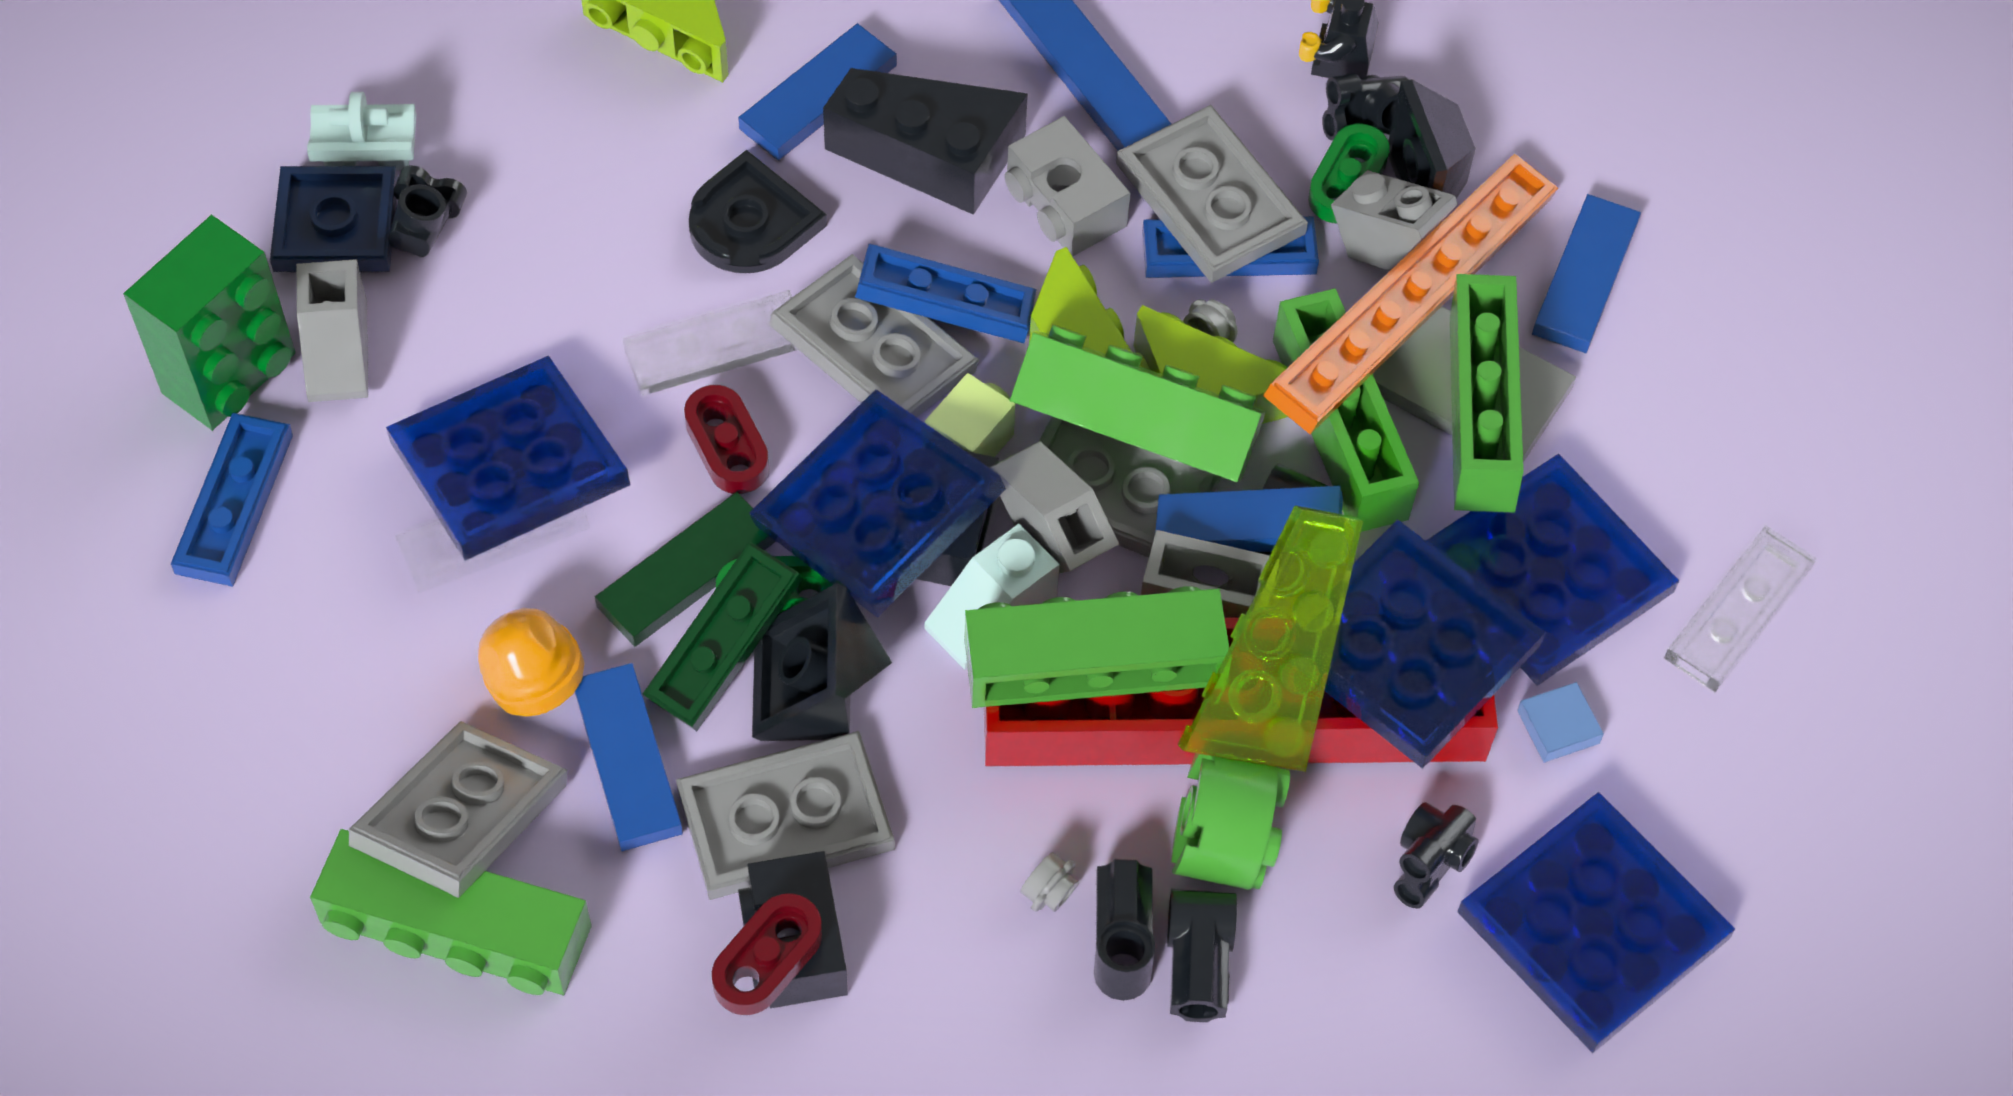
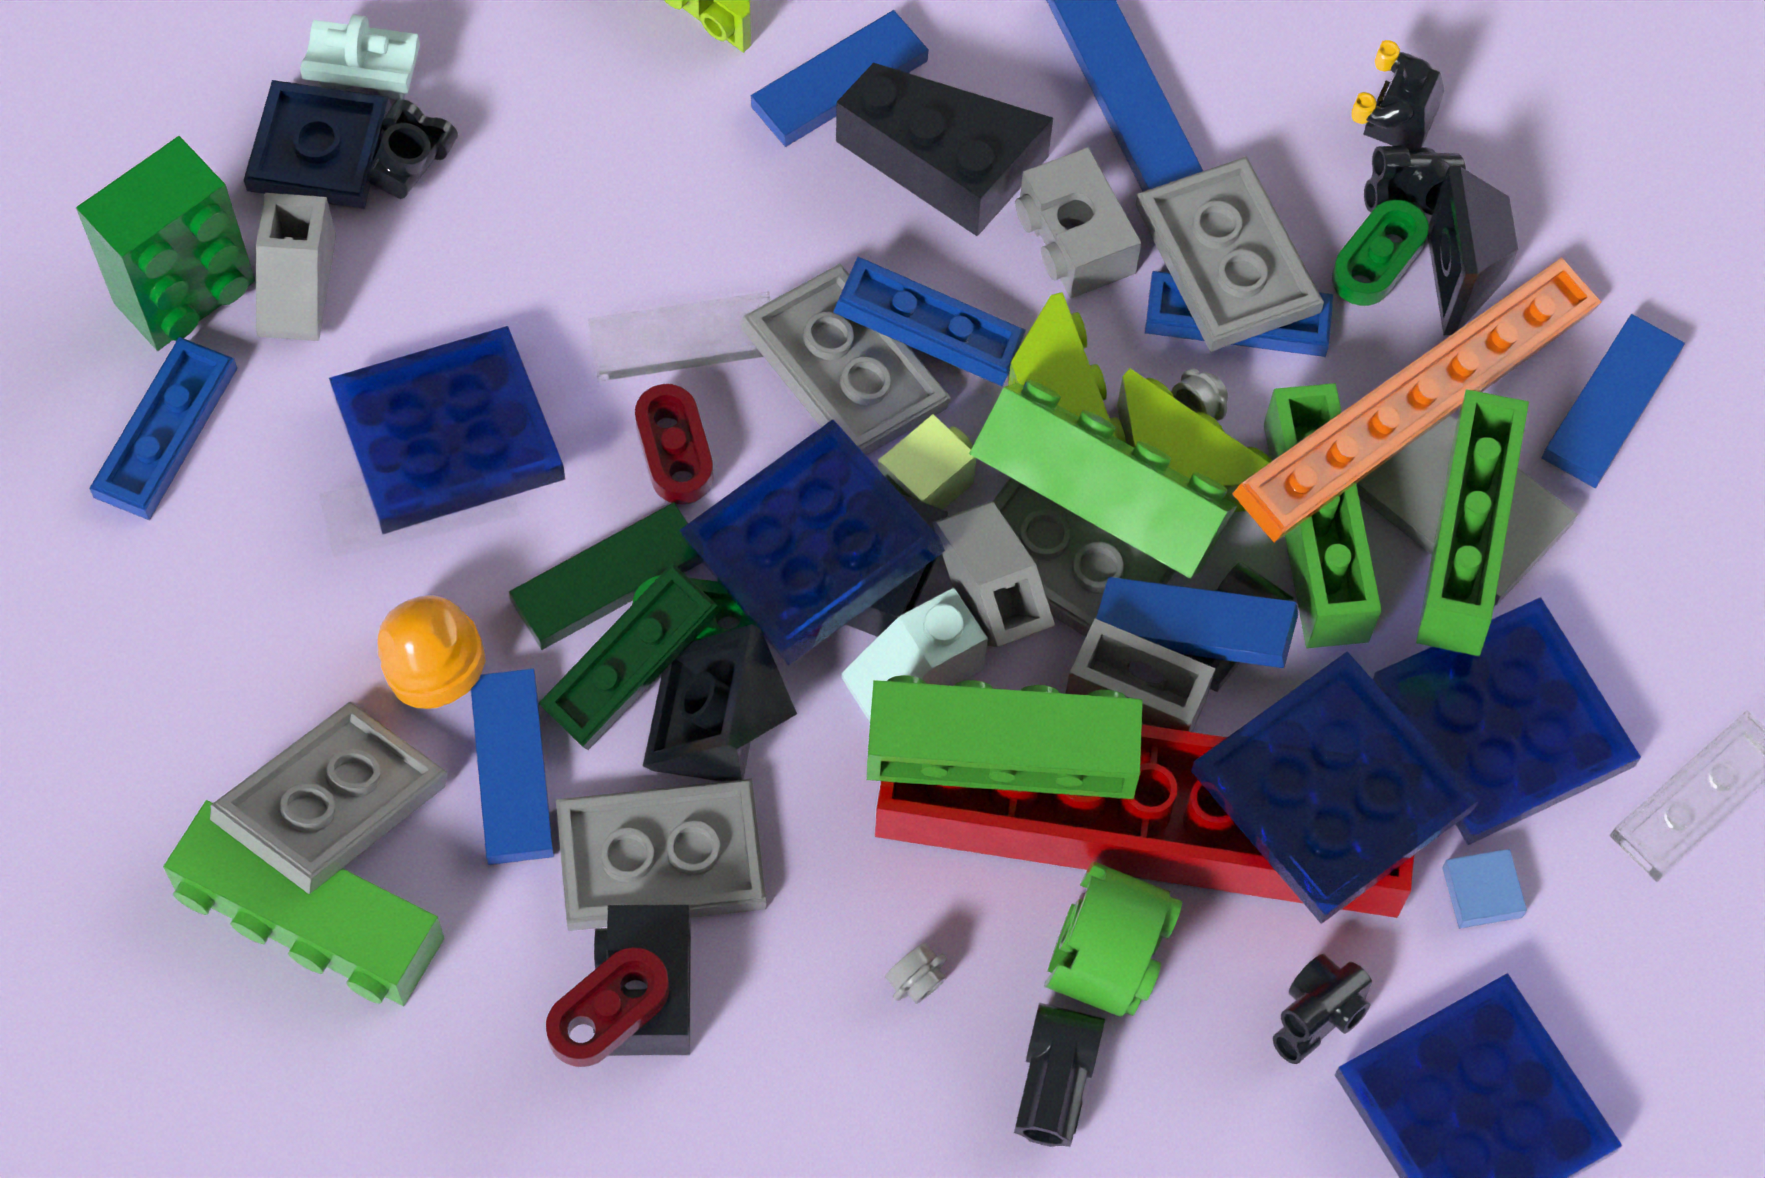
camera: 10 degrees right, 5 degrees up
(750, 218) = (744, 206): black tile -> none
(1124, 927) = (983, 1033): black piece -> none
(1277, 668) = (1187, 791): clear neon green wing -> none
(1387, 217) = (1408, 310): light grey slope -> none

